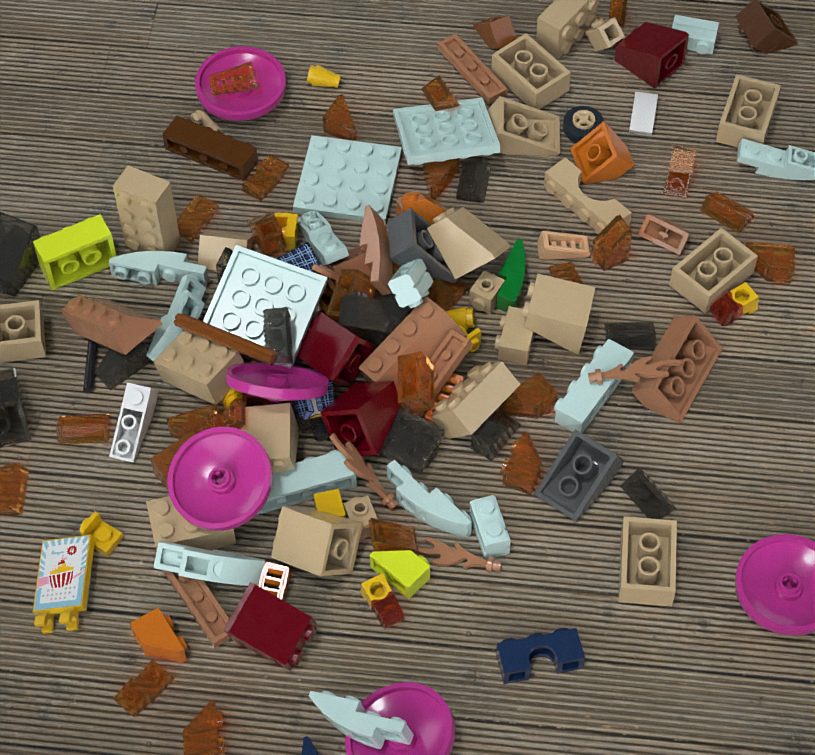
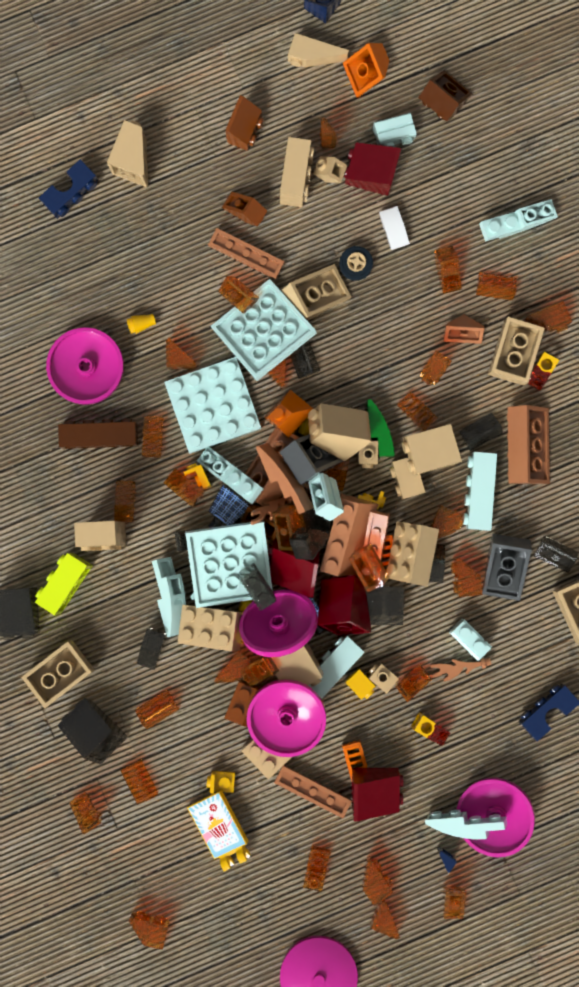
camera: 30 degrees left, 30 degrees up
(90, 366) = (127, 655): black bar -> none
(109, 322) = (129, 629): nougat slope -> none
(133, 421) = (189, 688): white slope -> none
(150, 266) = (121, 561): light aqua slope -> none
(157, 638) = (304, 833): orange slope -> none
(203, 119) = (86, 413): tan arm -> none
(208, 565) = (315, 769): light aqua slope -> none
(213, 243) = (163, 516): tan slope -> none
(225, 338) = (222, 609): dark orange axle -> none
(247, 81) = (77, 366): clear orange slope -> none
(316, 541) = (368, 717): tan slope -> none
(356, 464) = (367, 645): nougat piece -> none
(402, 570) = (431, 700): neon yellow slope -> none
(433, 507) = (425, 644): light aqua slope -> none
(463, 316) = (359, 485): yellow cone -> none
(530, 72) = (294, 238): tan brick -> none
(549, 250) = (385, 391): light nougat slope -> none
(564, 183) = (417, 342): tan arch -> none
(601, 155) = (384, 287): orange slope -> none
(636, 369) = (510, 470): nougat piece -> none
(748, 111) = (473, 191): tan brick -> none

